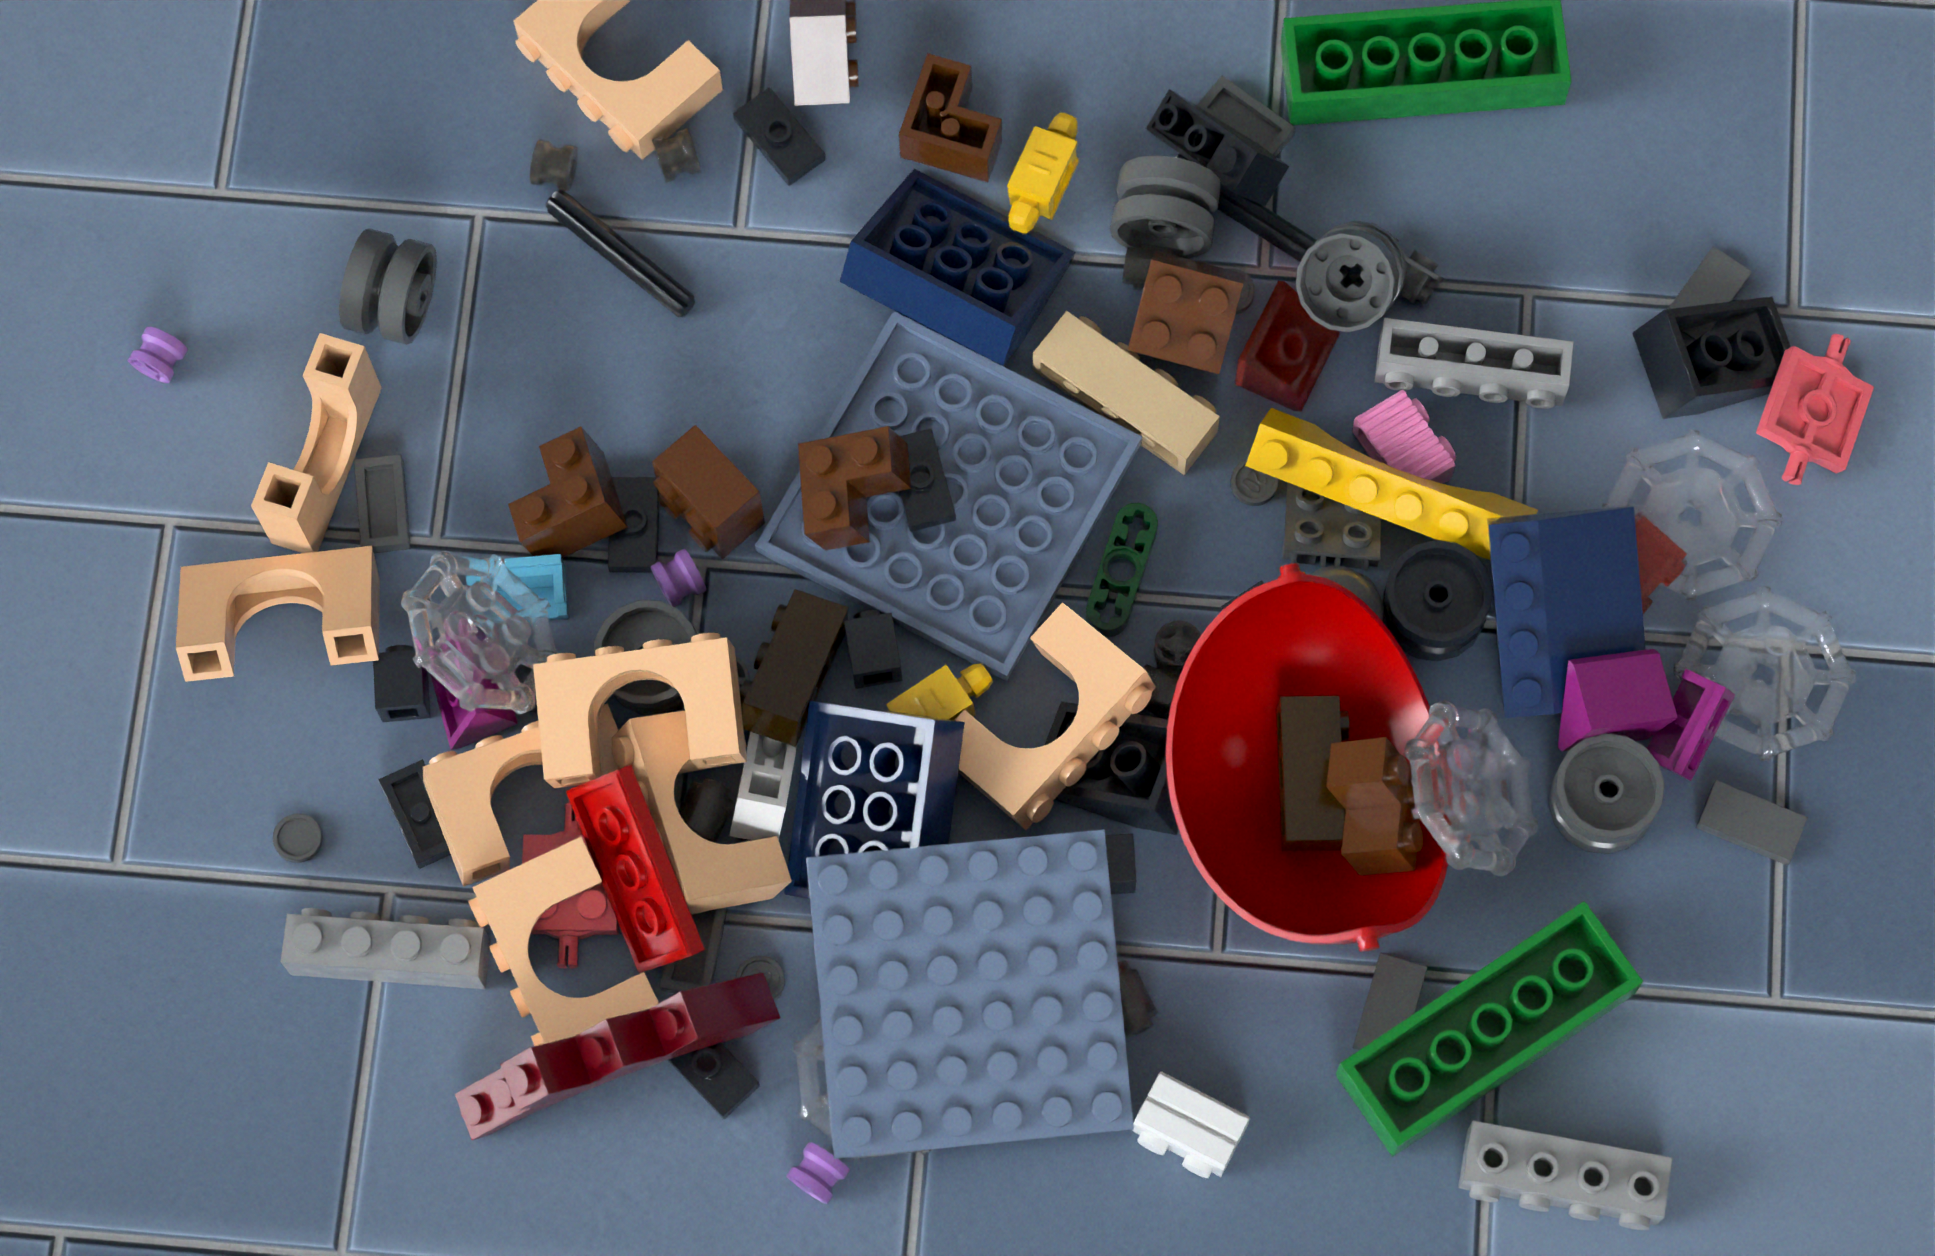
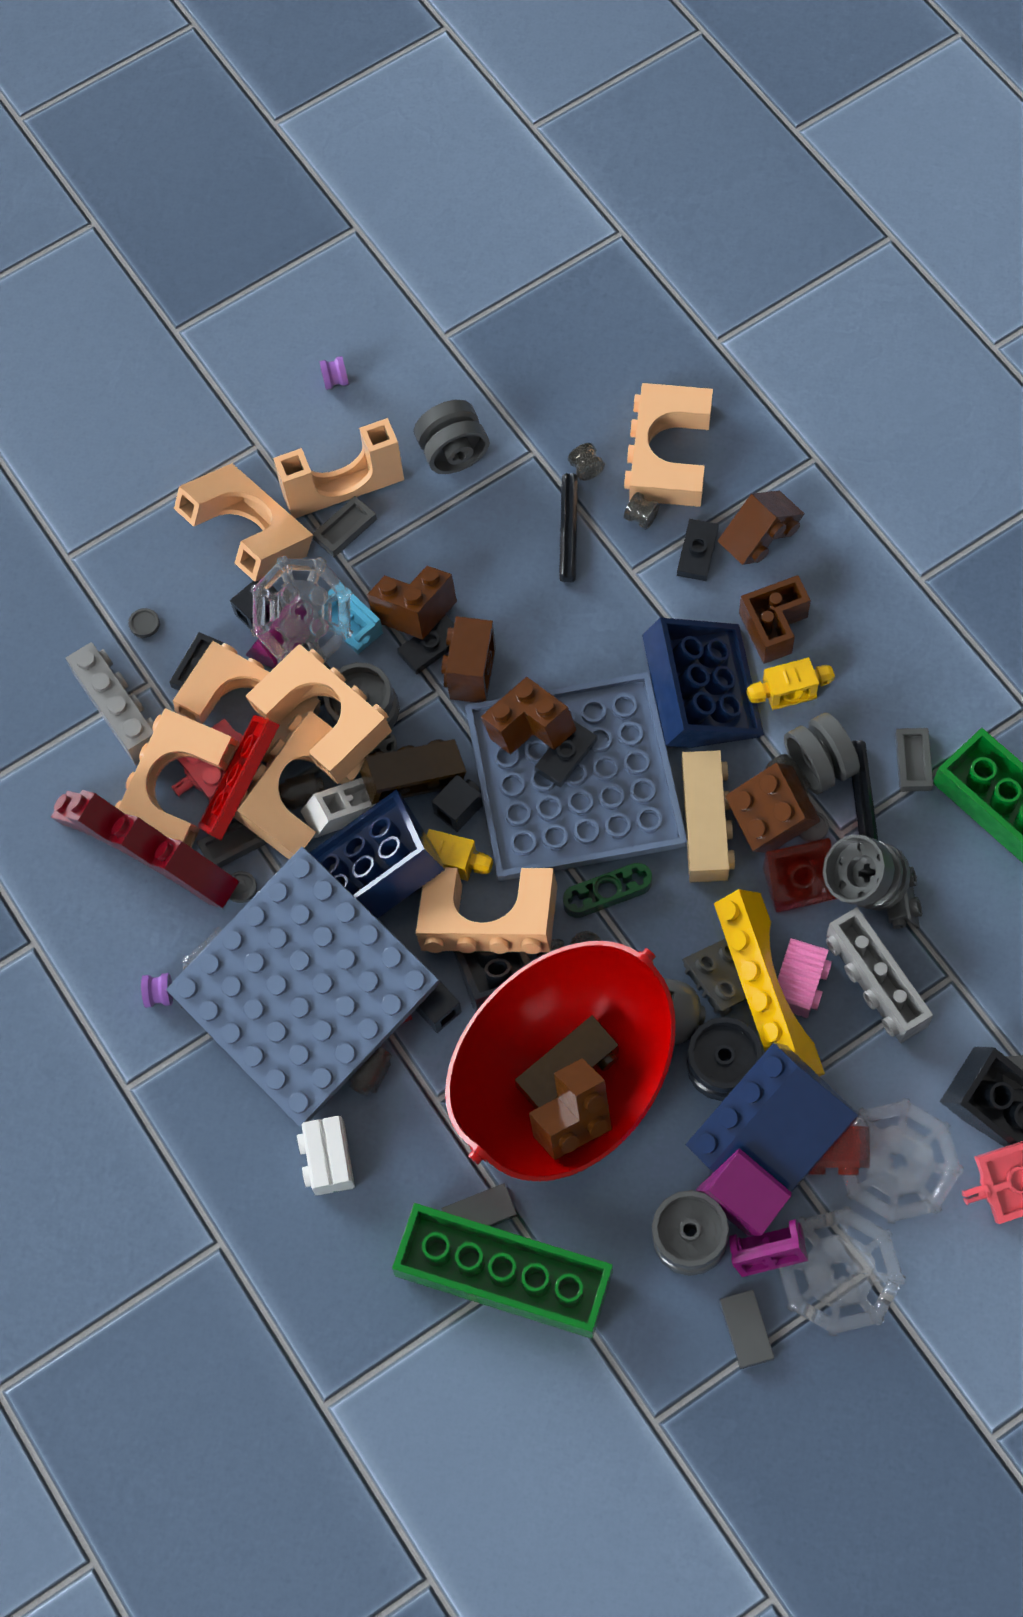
camera: 55 degrees right, 5 degrees down
(678, 578) = (417, 684): medium lavender wheel -> none
(716, 1077) = (172, 905): black plate -> none
(1231, 156) = (882, 757): black slope -> none
(1252, 486) = (709, 921): dark grey piece -> none
(1482, 811) = (644, 1160): clear plate -> none
(1565, 1174) = (456, 1376): light grey brick -> none

